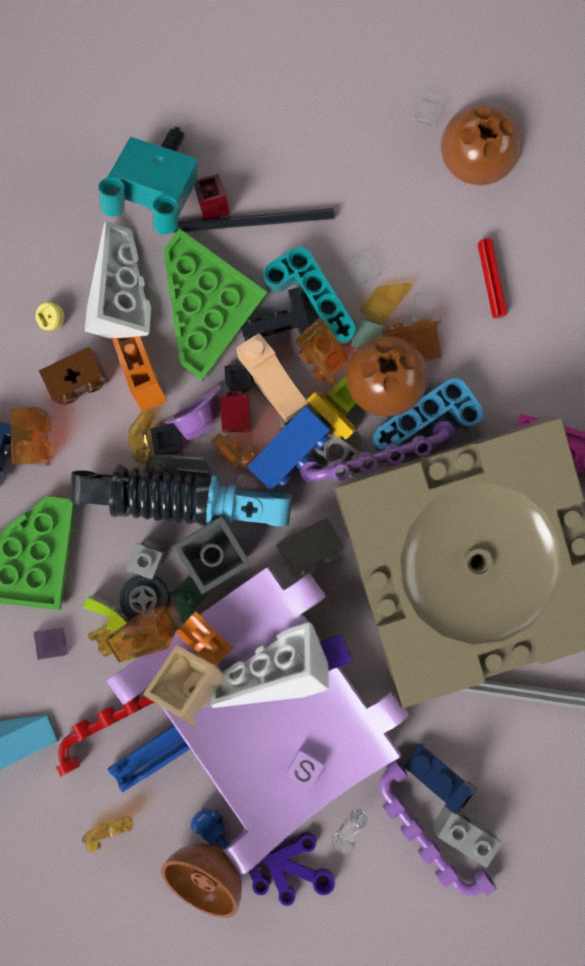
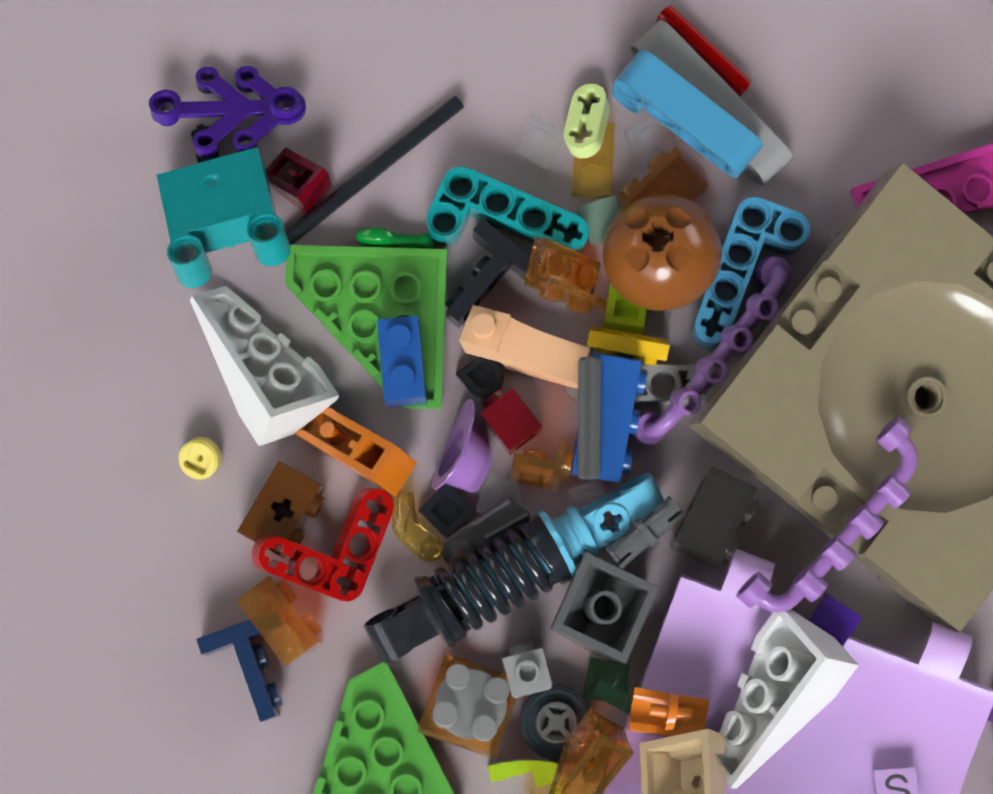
camera: 30 degrees left, 5 degrees down
(80, 427) = (332, 567): none -> red beam
(100, 556) = (468, 706): none -> light grey piece
(195, 337) = (401, 361): none -> blue brick
(228, 146) = (232, 110): none -> dark purple plant
(239, 264) = (388, 238): none -> green piece
(264, 528) = (645, 532): none -> dark grey pin
(277, 441) = (589, 417): none -> dark grey axle
(363, 615) = (837, 549): none -> medium lavender bar
(400, 275) = (579, 119): none -> yellowish green beam
(457, 305) = (686, 112): none -> dark azure beam
(476, 310) = (682, 58): none -> light grey beam

